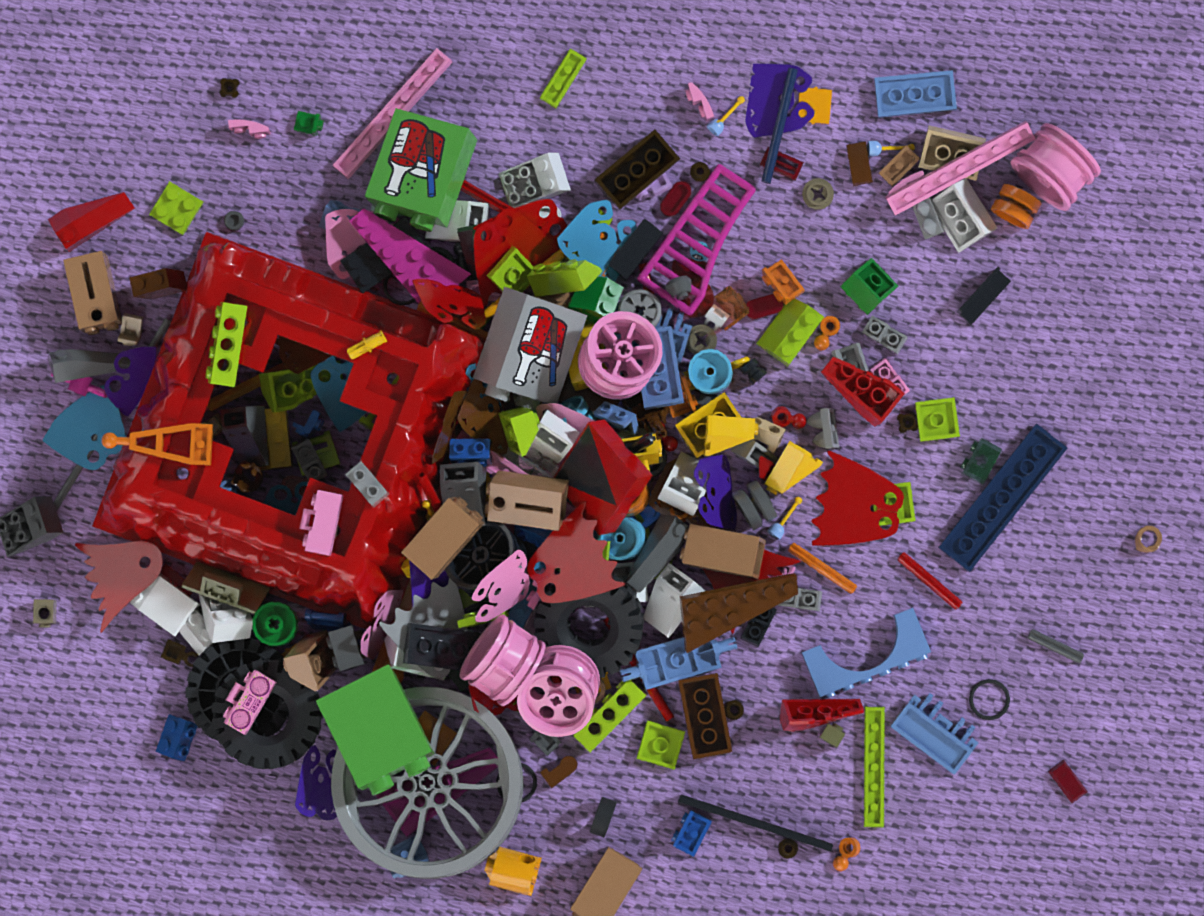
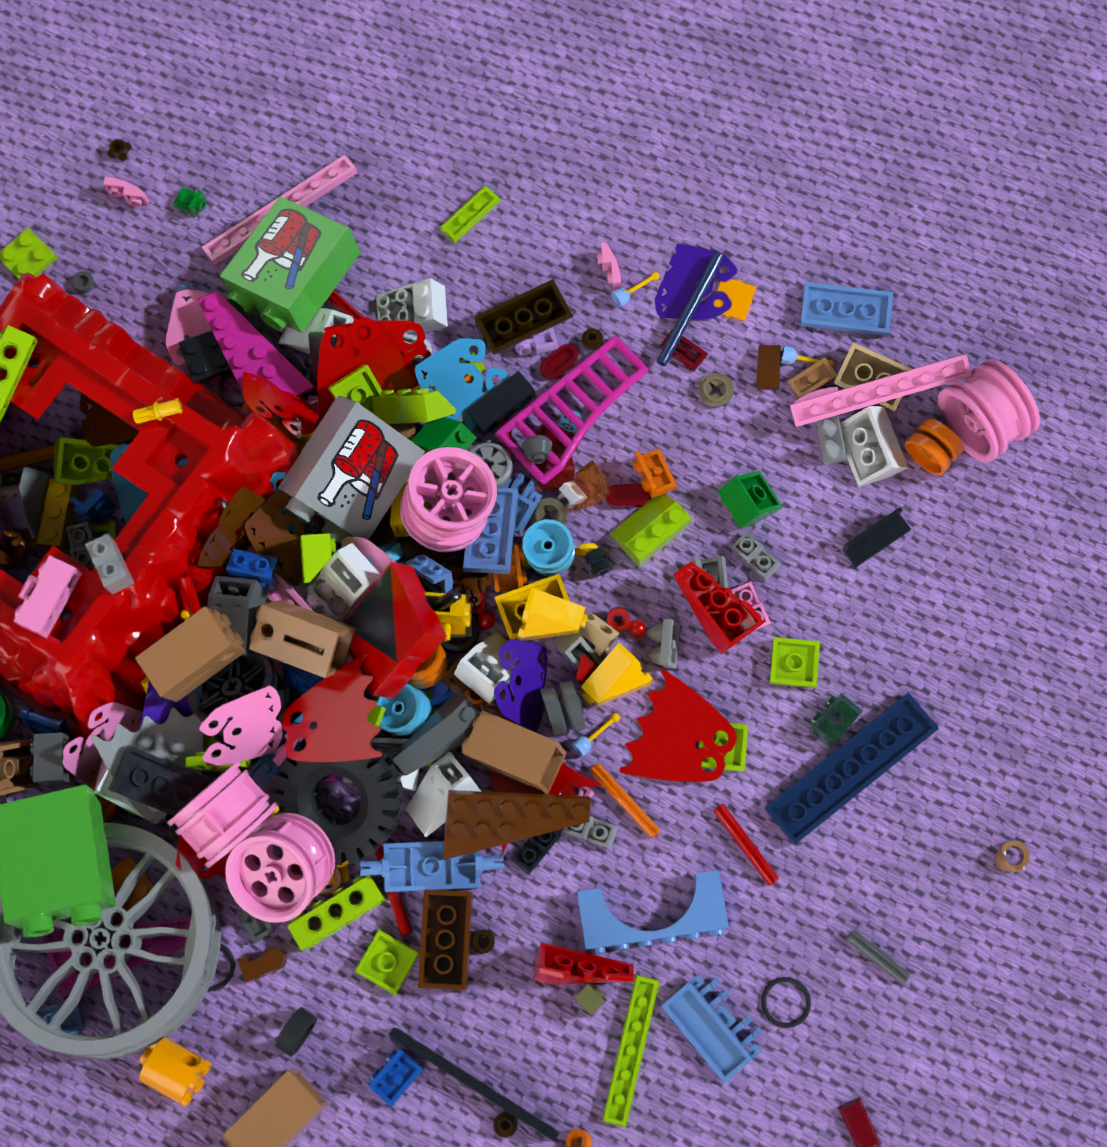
camera: 15 degrees right, 10 degrees down
(821, 341) = (684, 547): orange plate -> none
(902, 422) = (754, 663): dark brown plate -> none

